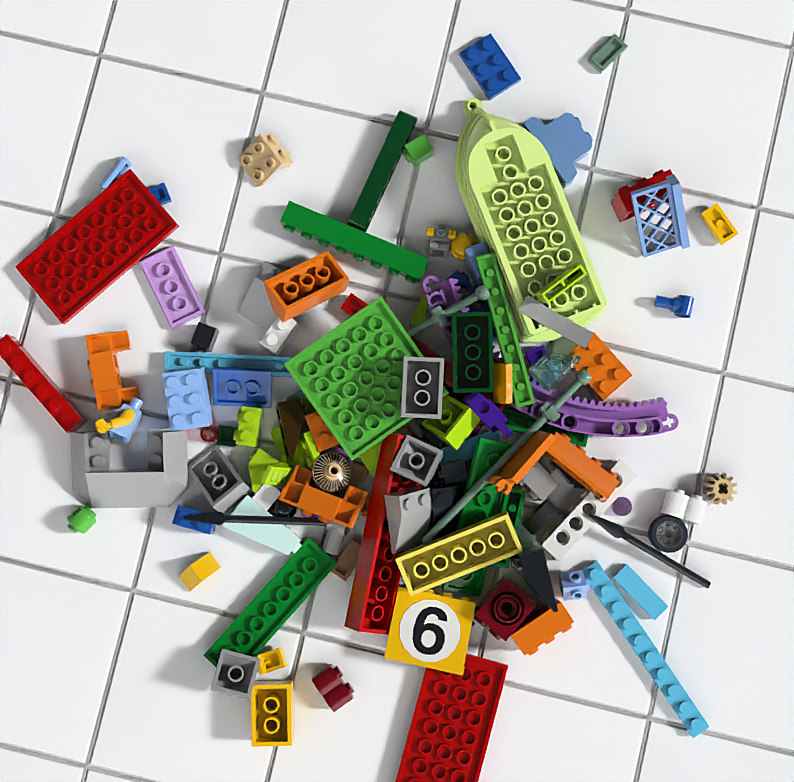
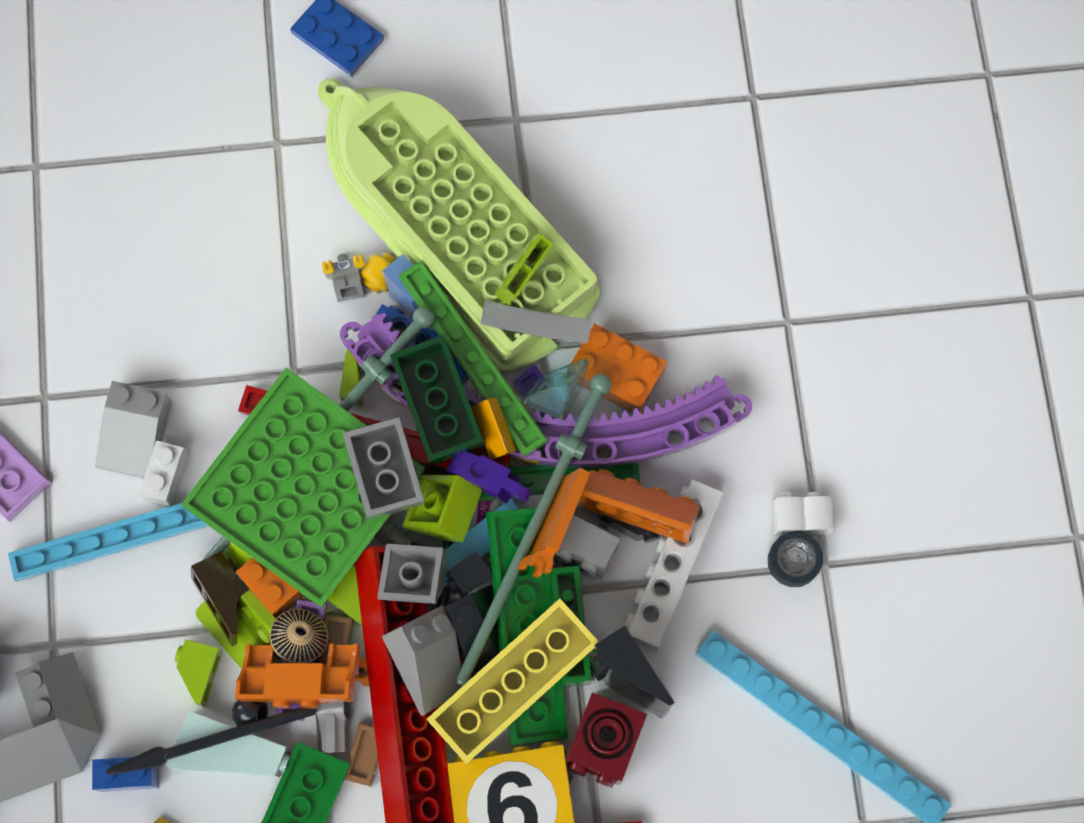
camera: 25 degrees left, 10 degrees down
(187, 398) = (60, 606): light blue brick -> none
(204, 337) = (59, 515): black brick -> none
(204, 436) = (102, 654): clear red bush -> none
(219, 479) = (141, 705): light grey slope -> none
(226, 436) = (135, 642): dark green tile -> none
(242, 387) = (134, 564): blue plate -> none
(249, 426) = (162, 616): lime brick -> none
(264, 158) = (67, 248): tan bracket -> none
(267, 496) = (218, 701): white brick -> none
(277, 474) = (222, 665): lime slope -> none
(305, 286) = (179, 395): orange slope -> none
(354, 242) = (228, 317): green brick -> none
(382, 171) = (236, 214): dark green beam -> none
(418, 150) = (276, 169): bright green brick -> none
(540, 516) = (611, 596): black tyre -> none
(541, 628) = (667, 747): orange brick -> none
(564, 143) = (470, 96): medium blue brick -> none
(573, 585) = (691, 674): light blue brick -> none
(618, 531) = (726, 578): black piece -> none
(621, 506) = (719, 545): clear purple tile -> none
(622, 200) = (598, 126): red brick -> none
(640, 592) = (787, 652): medium azure tile -> none
(675, 210) = (644, 129): medium blue fence -> none
(680, 305) = (699, 252): blue pin -> none
(719, 224) = (710, 132): yellow plate -> none
(720, 497) = (852, 475): tan gear -> none

